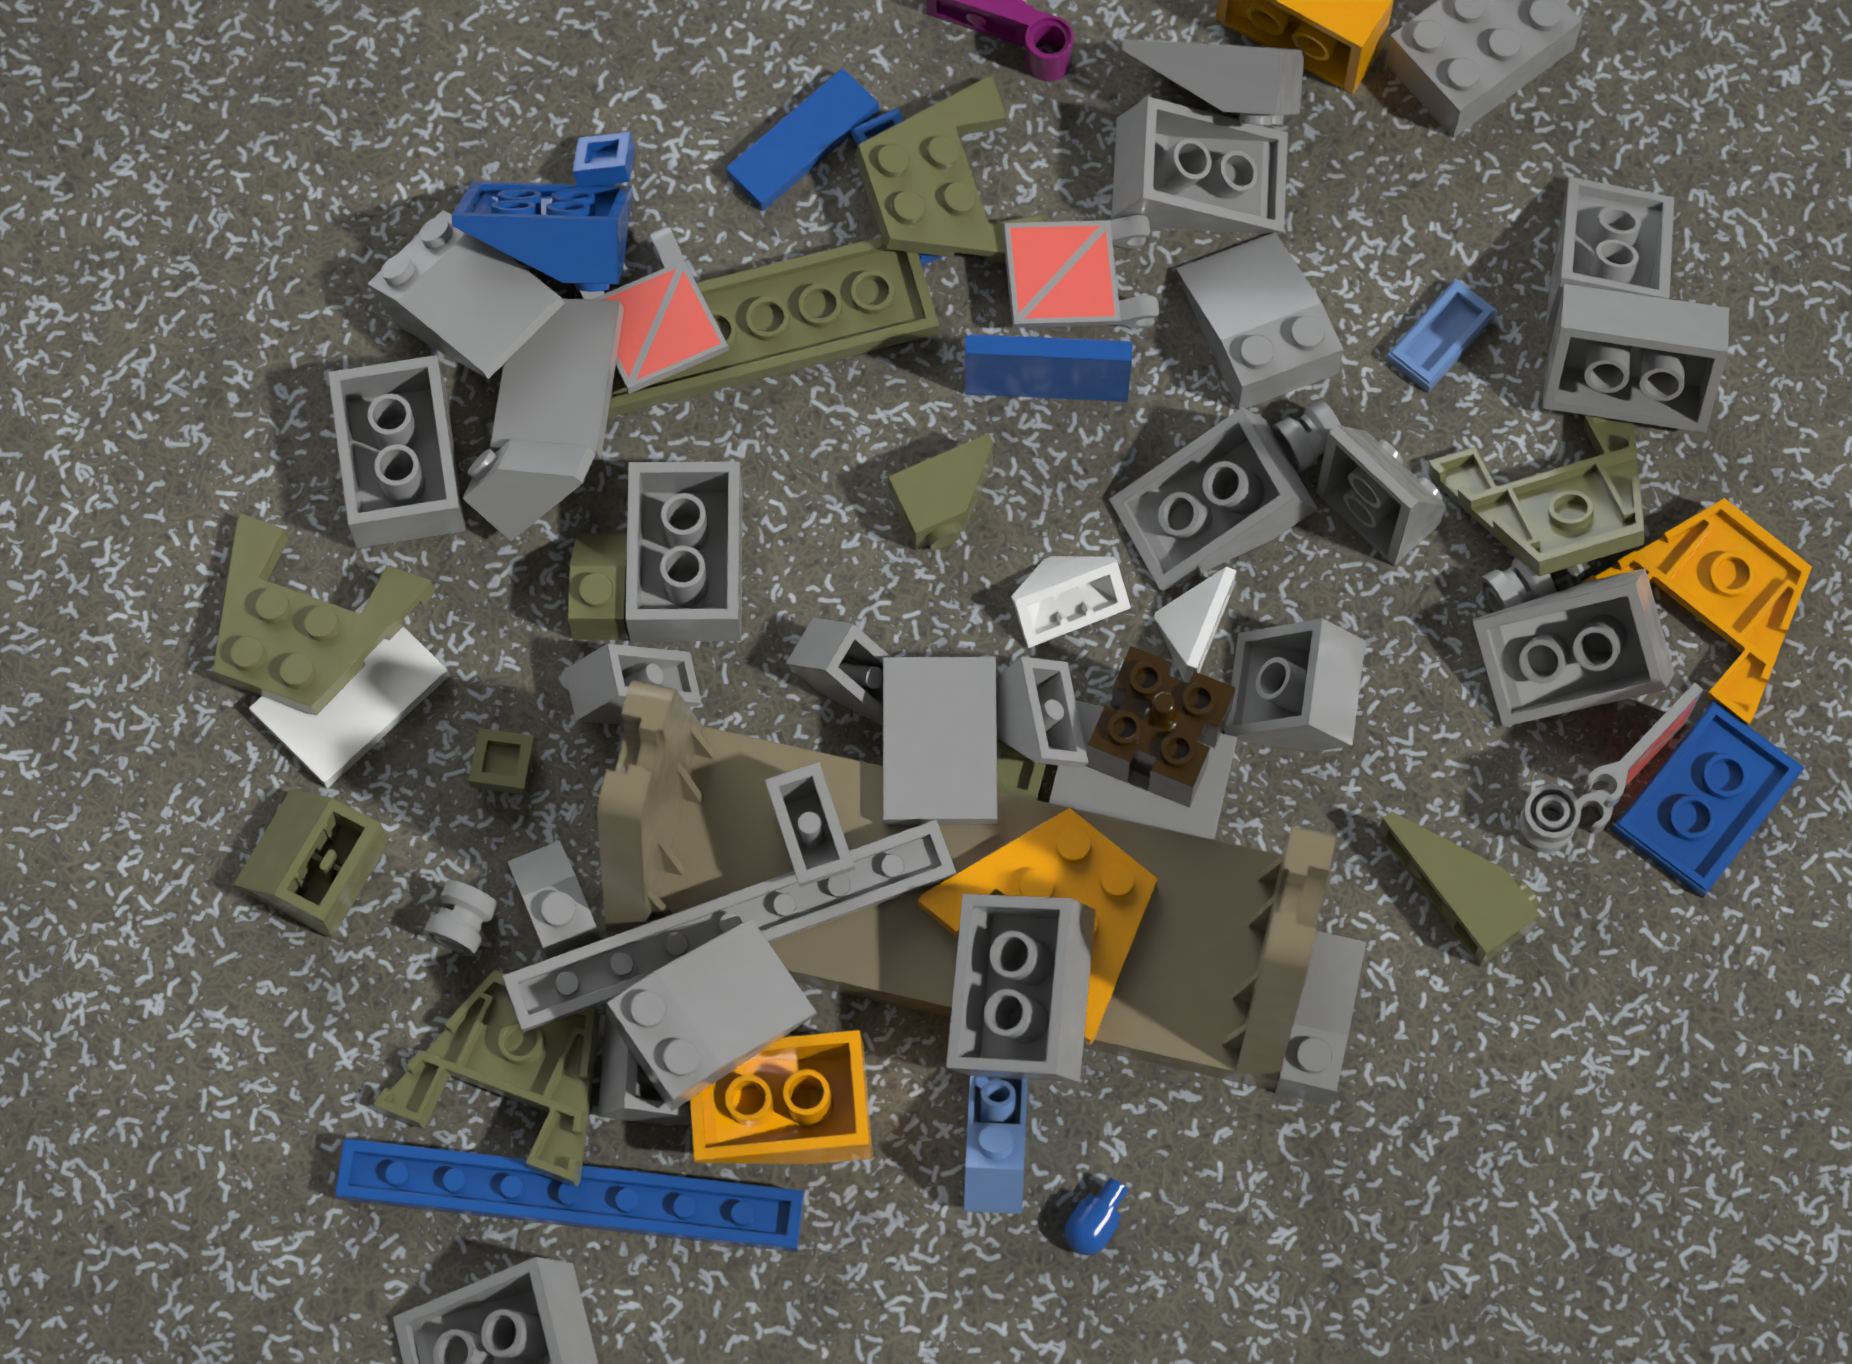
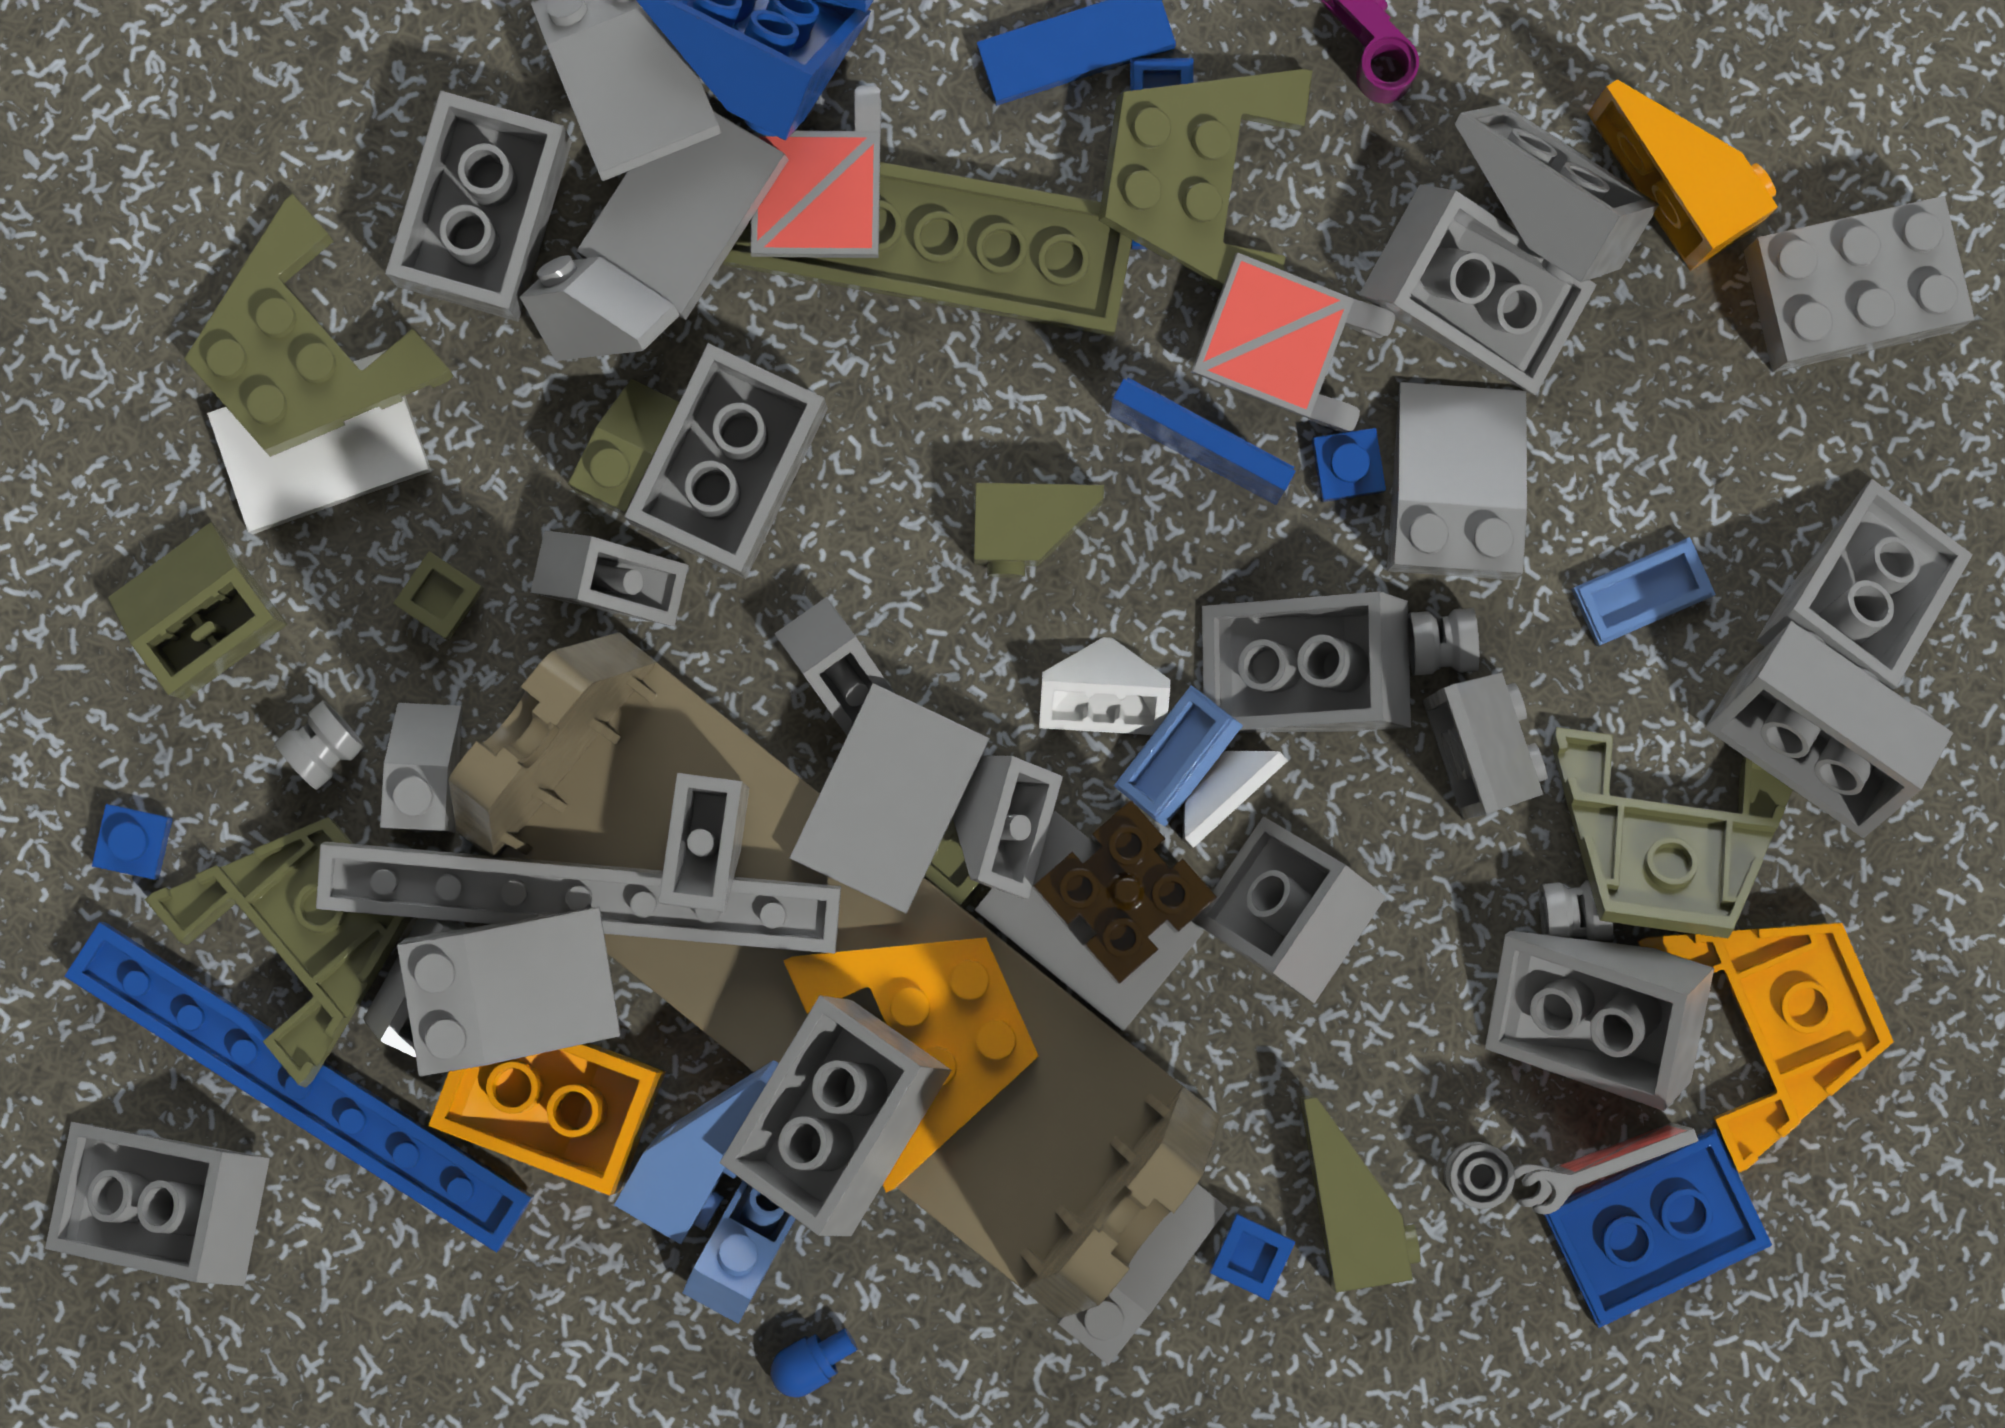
camera: 25 degrees right, 15 degrees up
(340, 1069) = (132, 842): none -> blue plate
(916, 1102) = (681, 1165): none -> medium blue slope
(1149, 607) = (1178, 755): none -> medium blue tile
(1168, 345) = (1348, 465): none -> blue plate
(1405, 966) = (1252, 1256): none -> blue plate

